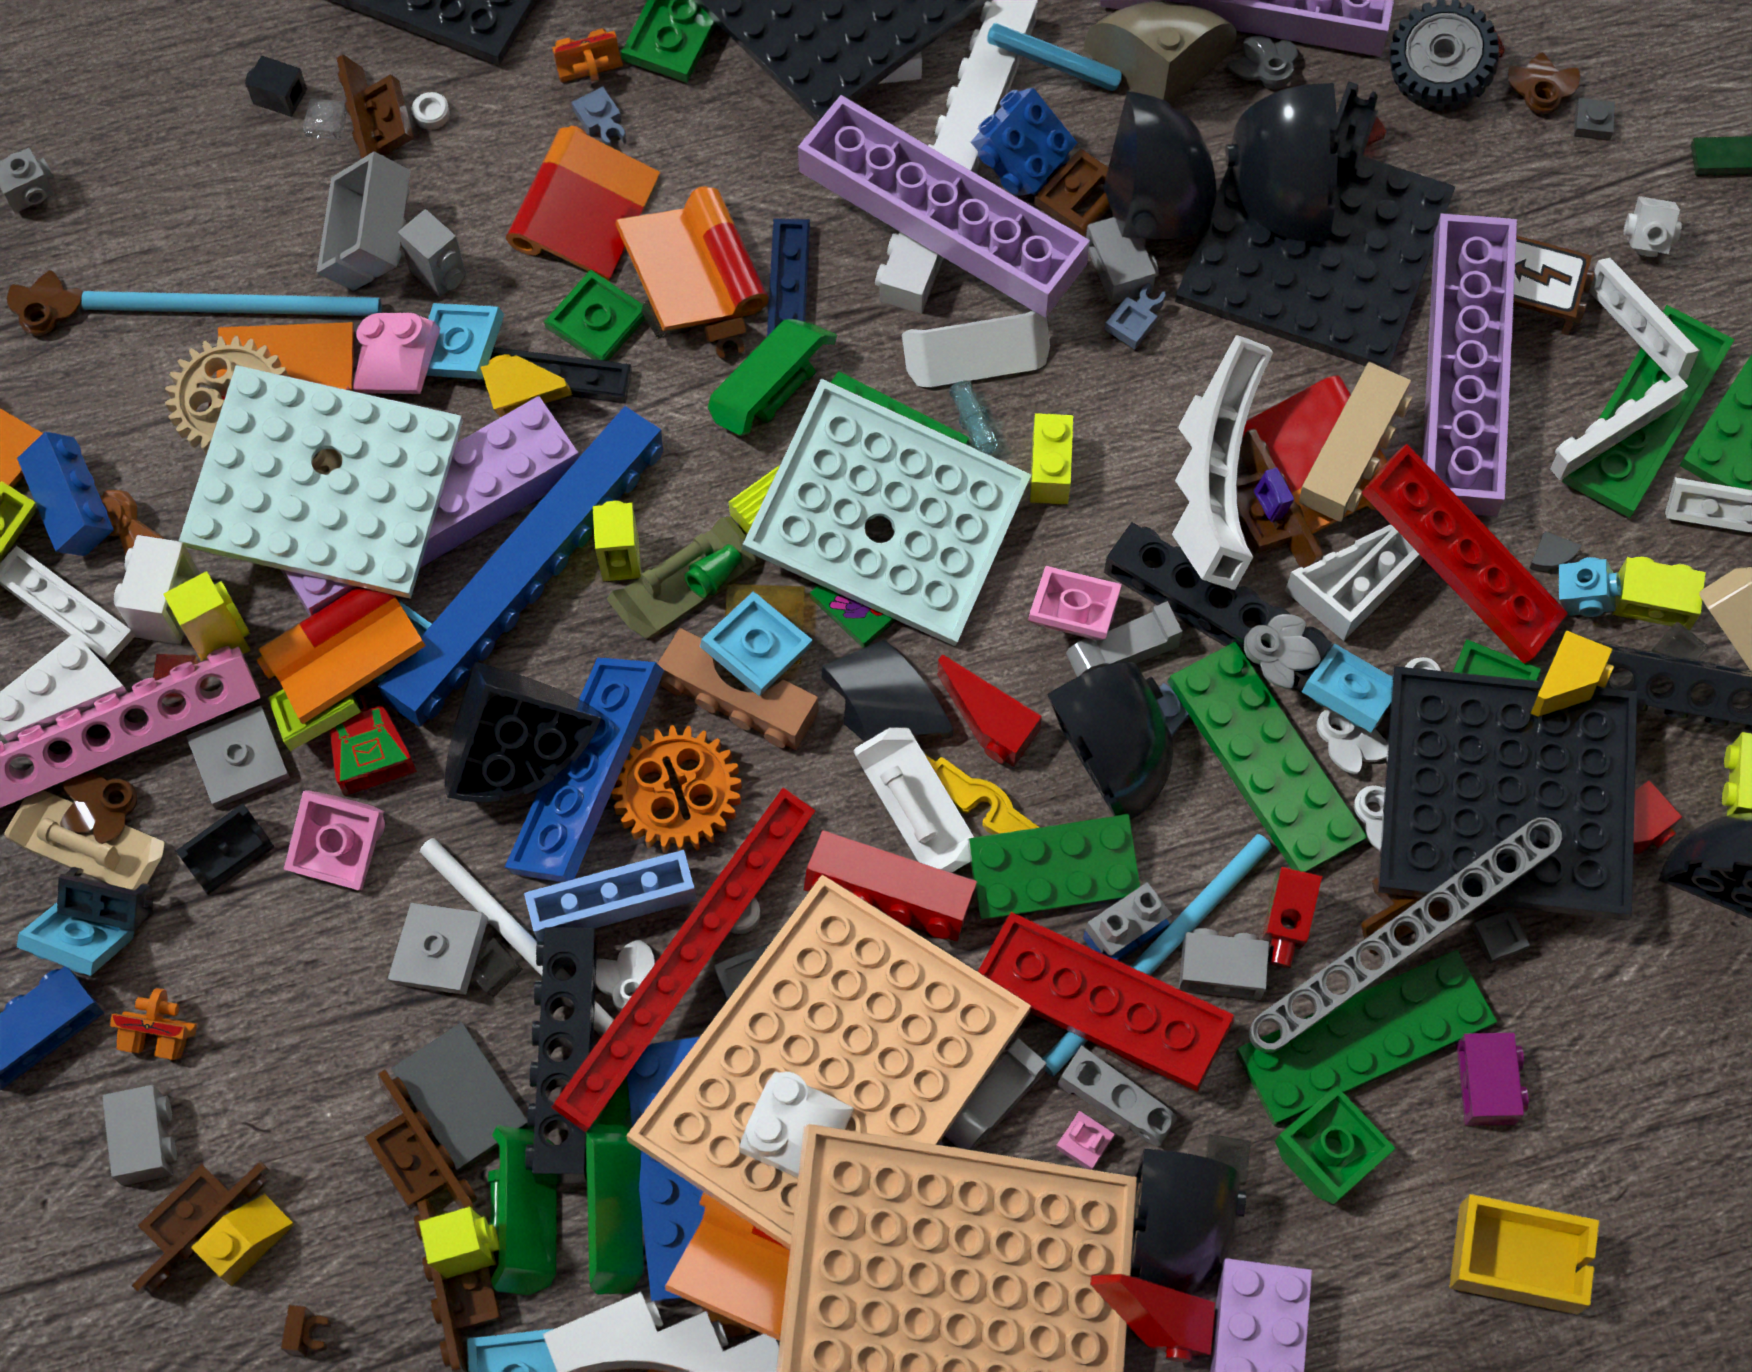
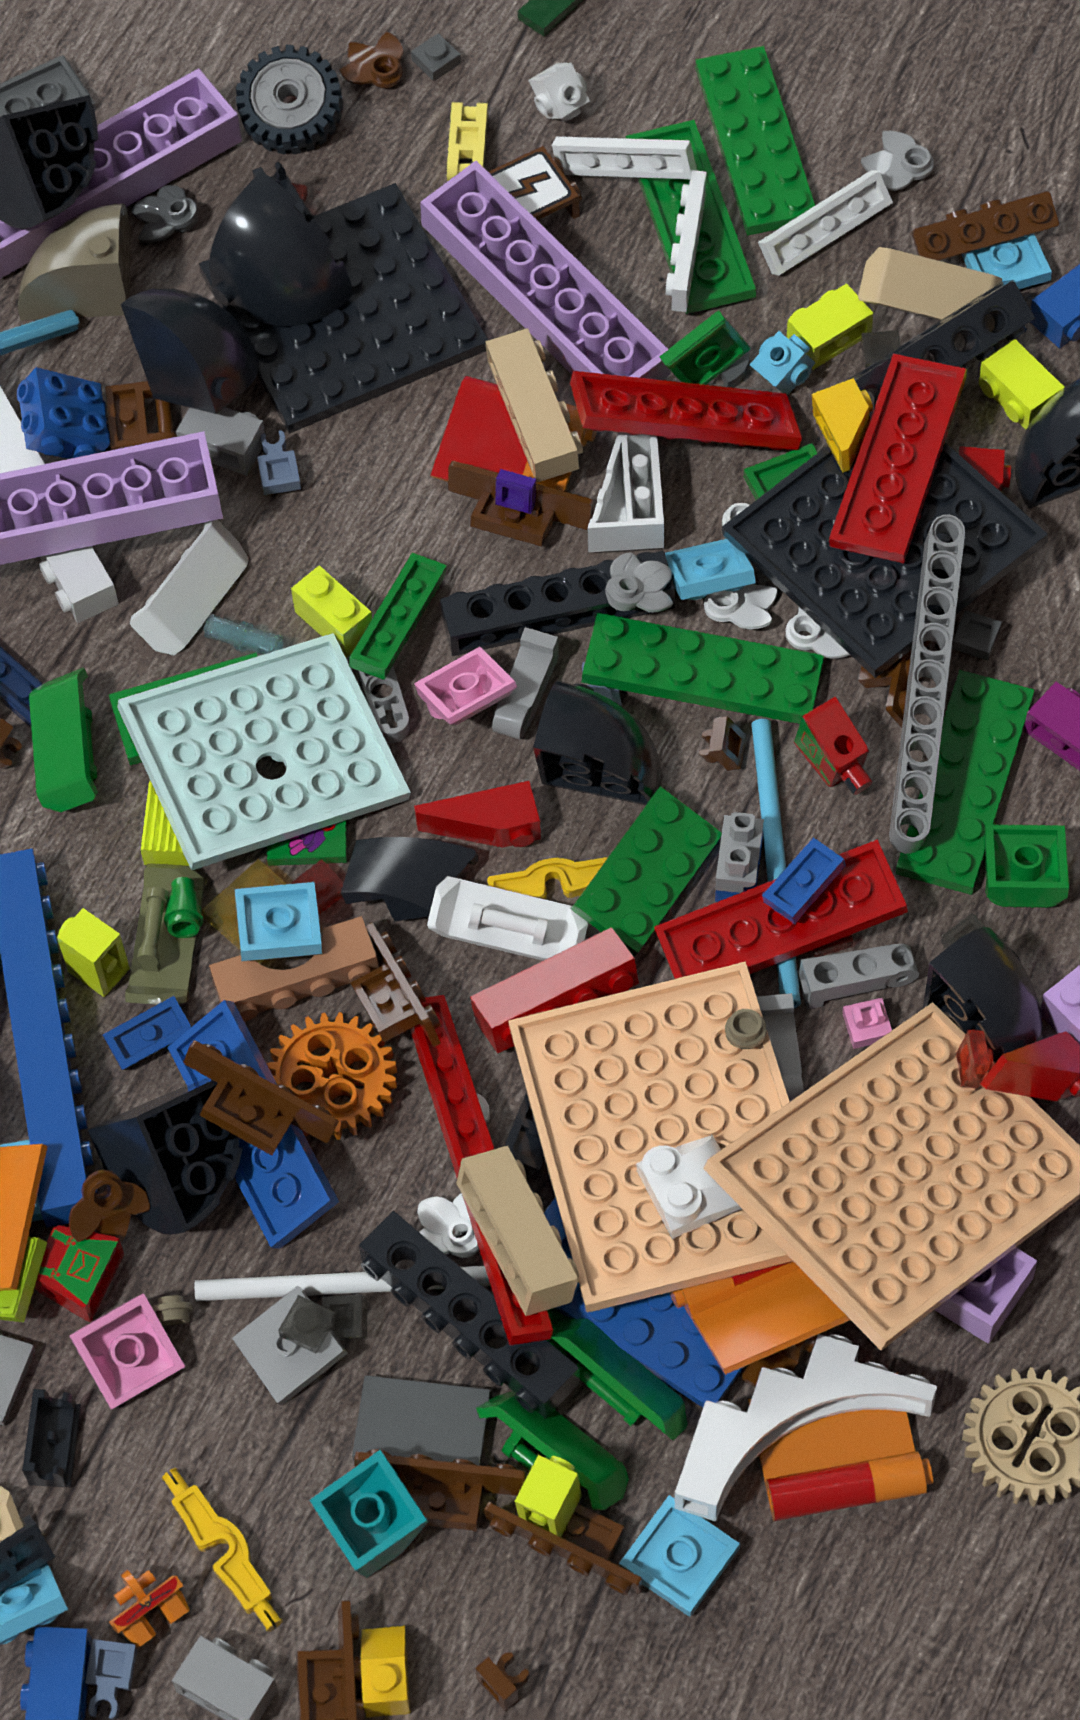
camera: 45 degrees left, 5 degrees down
(85, 1046) = (110, 1669): none -> sand blue plate
(236, 1061) = (235, 1565): none -> yellow piece
(341, 1121) = (370, 1514): none -> teal slope
(394, 843) = (172, 1310): none -> dark tan plate
(421, 731) = (106, 1211): none -> reddish brown plate
(455, 946) = (307, 1324): none -> clear smoke plate
(577, 756) = (252, 1105): none -> reddish brown bracket
(594, 634) = (147, 1032): none -> blue plate
(612, 895) = (373, 1185): light blue brick -> none
(645, 1031) = (517, 1230): none -> tan brick
(772, 773) = (388, 996): none -> reddish brown bracket
(826, 646) = (327, 884): none -> clear red plate
(967, 1056) = (745, 1029): none -> dark tan plate
(1024, 533) = (380, 705): none -> light grey beam
(1090, 506) = (397, 616): none -> green plate
(1108, 1253) = (973, 1059): none -> clear red plate
(1143, 989) = (803, 880): none -> blue plate
(1214, 428) = (455, 518): white arch -> none
(1218, 830) = (725, 744): none -> reddish brown tile
(1224, 964) = (833, 817): light grey brick -> none
(1532, 523) = (706, 351): none -> green tile
(1546, 201) = (466, 136): none -> light yellow plate
(1581, 743) = (898, 458): none -> red plate

